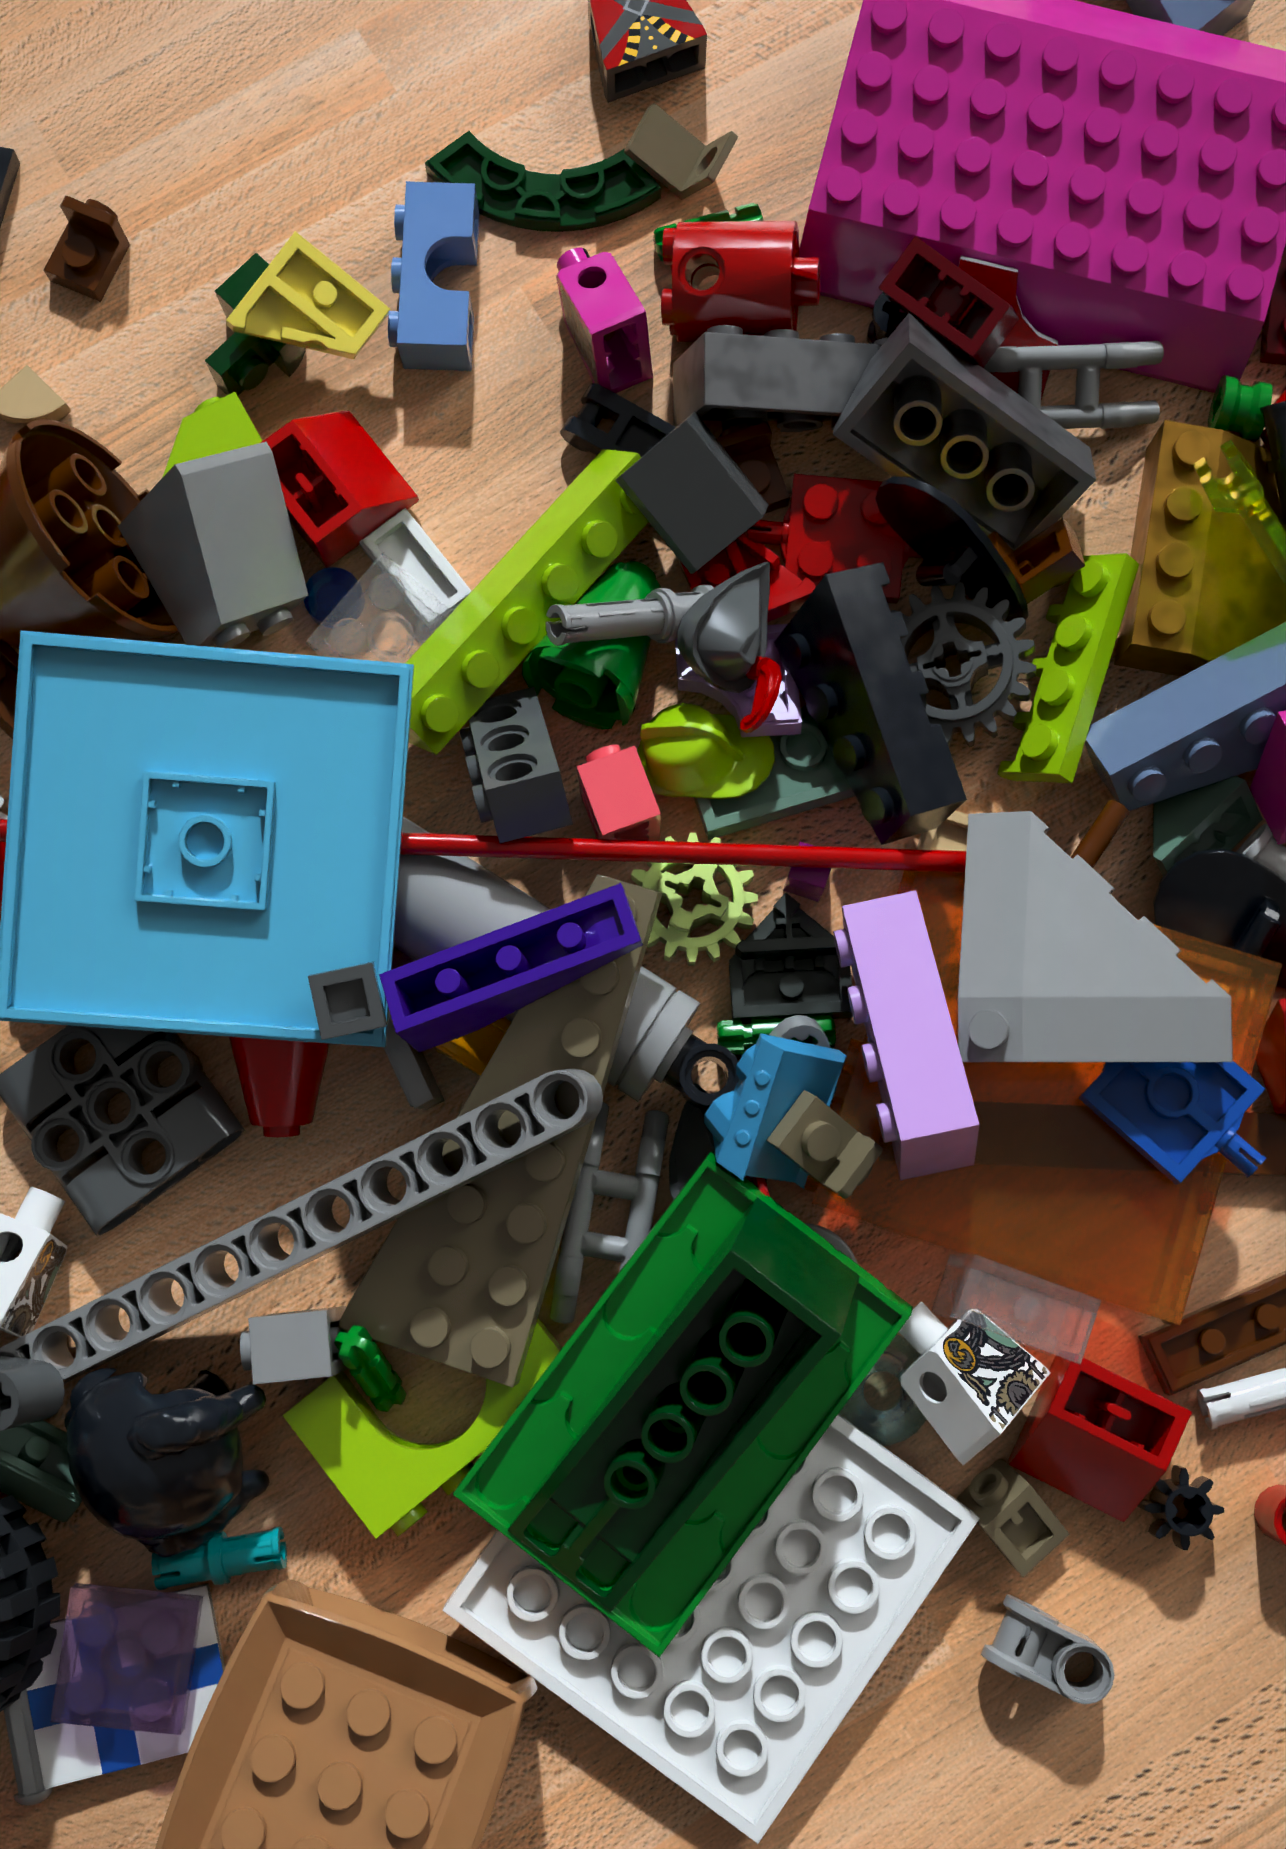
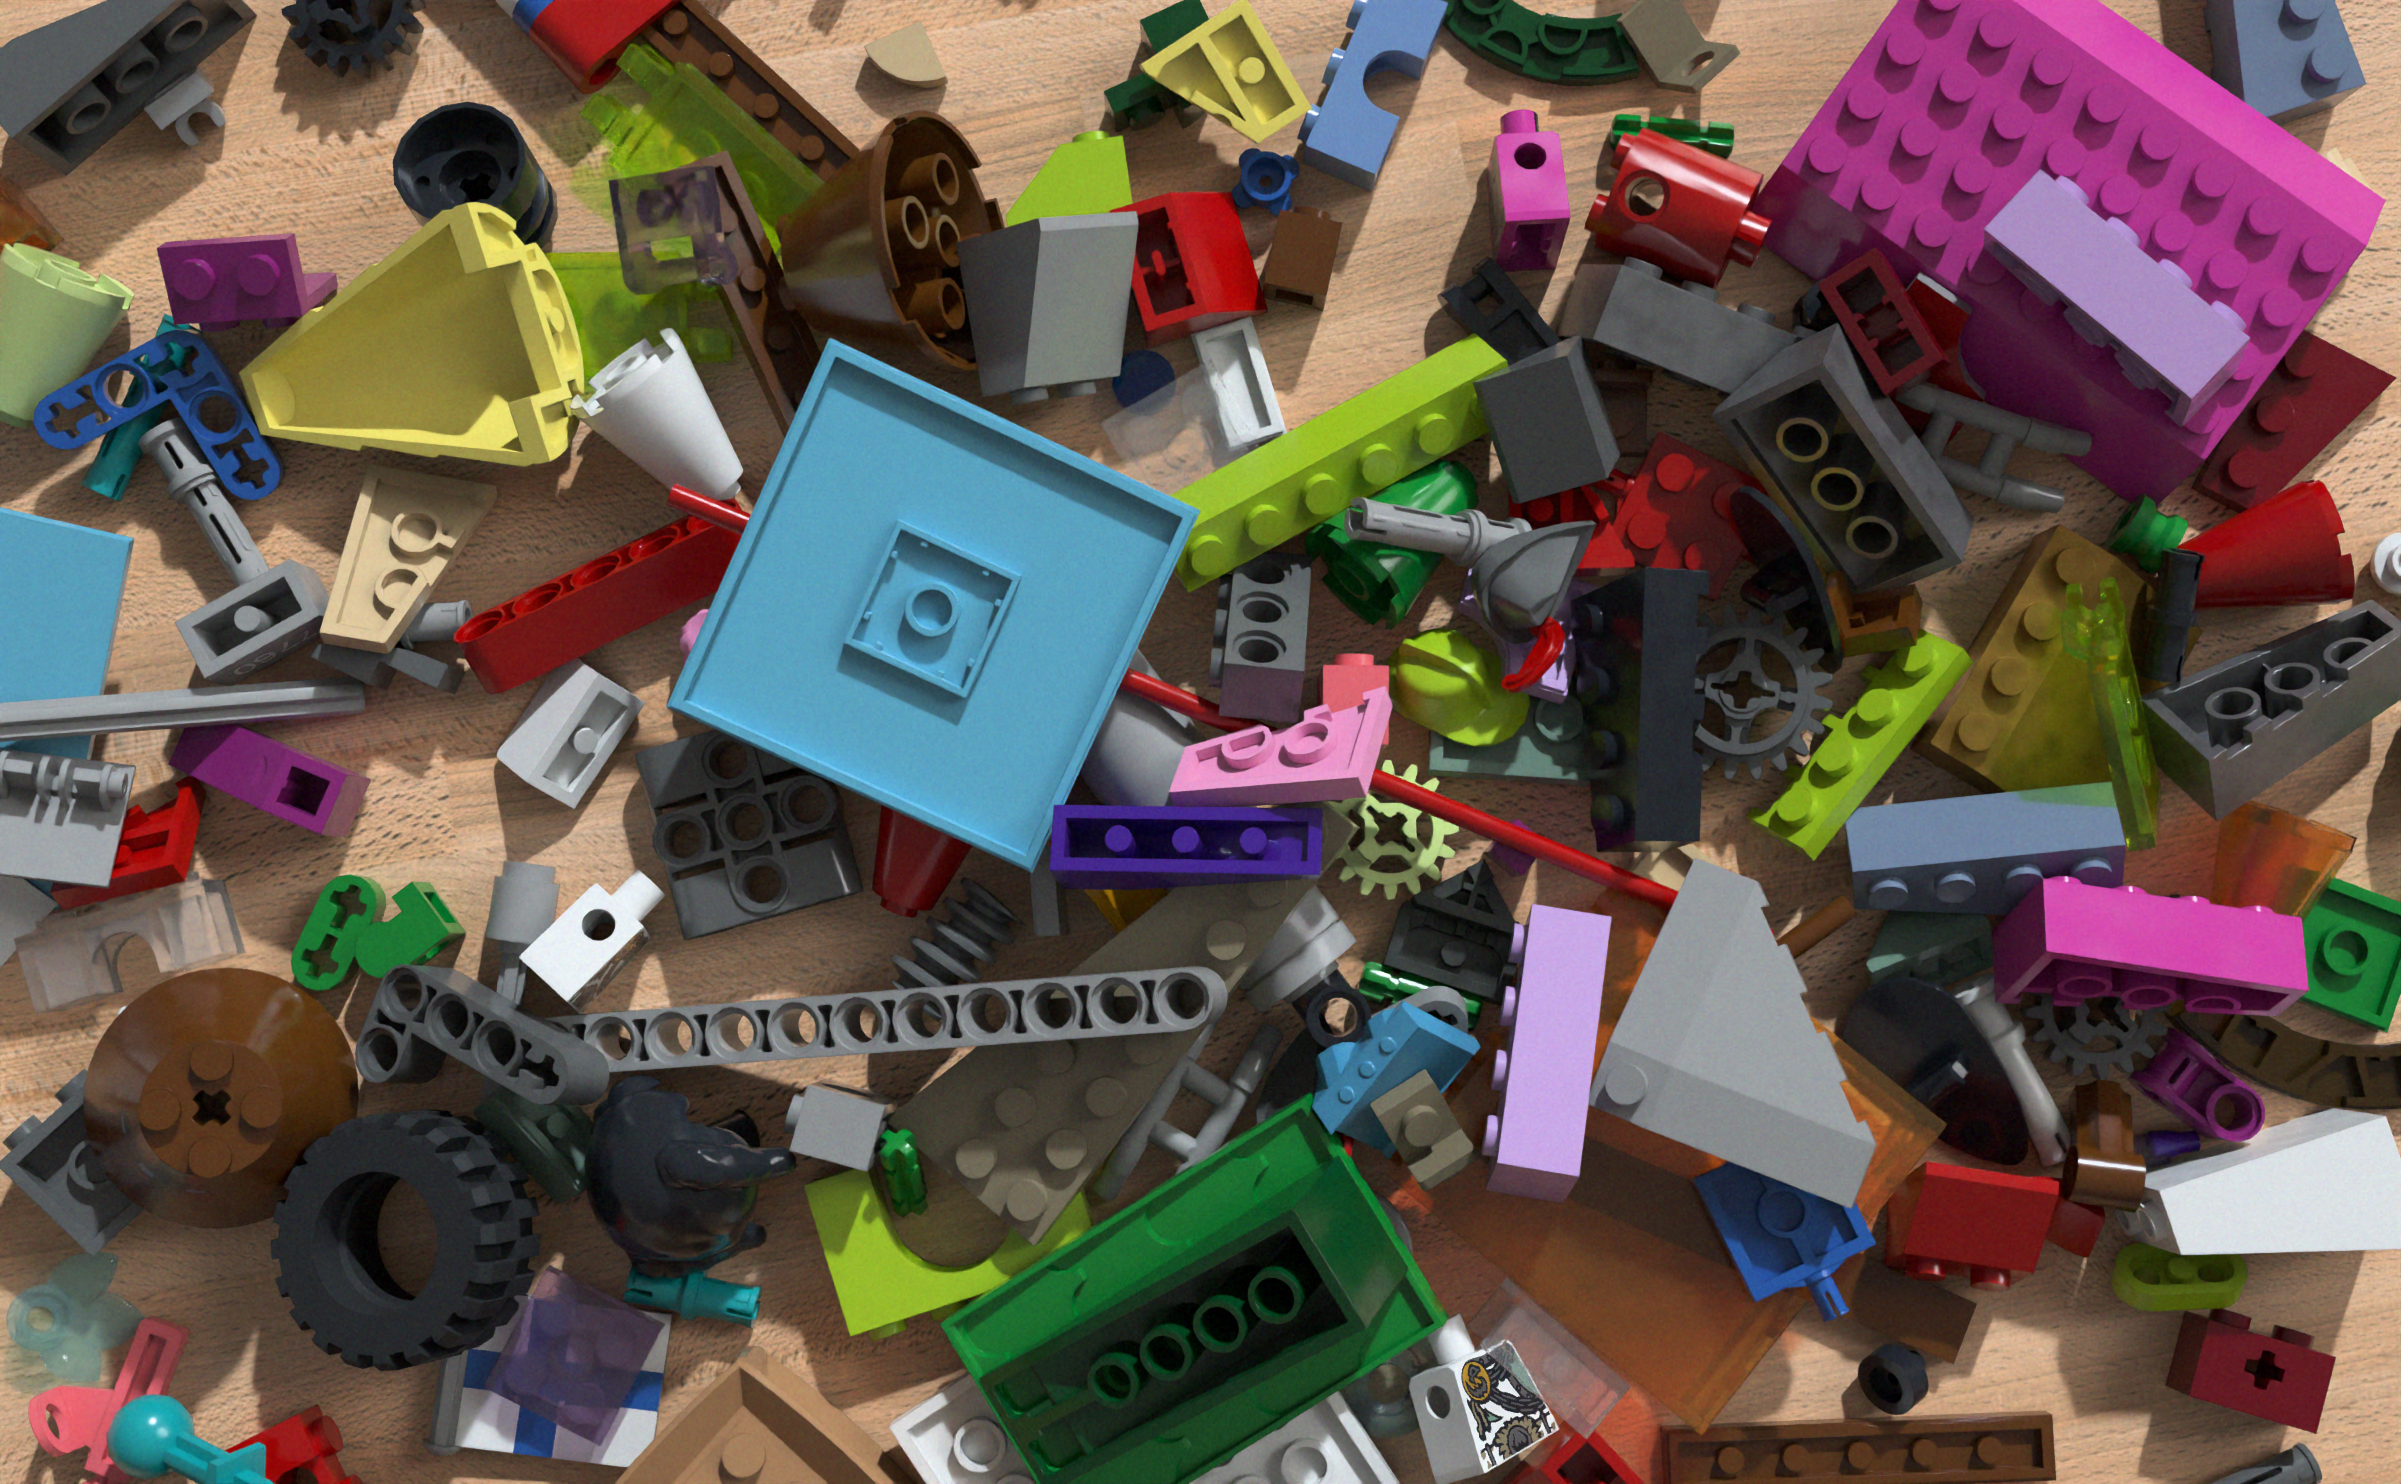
camera: 20 degrees right, 5 degrees up
(346, 1139) = (957, 943): none -> dark grey piece
(347, 1000) = (1013, 818): dark grey plate -> none
(376, 376) = (1265, 164): none -> blue plate
(431, 442) = (1302, 257): none -> reddish brown brick
(593, 849) = (1307, 762): none -> bright pink wing
(1138, 200) = (2118, 293): none -> lavender wedge

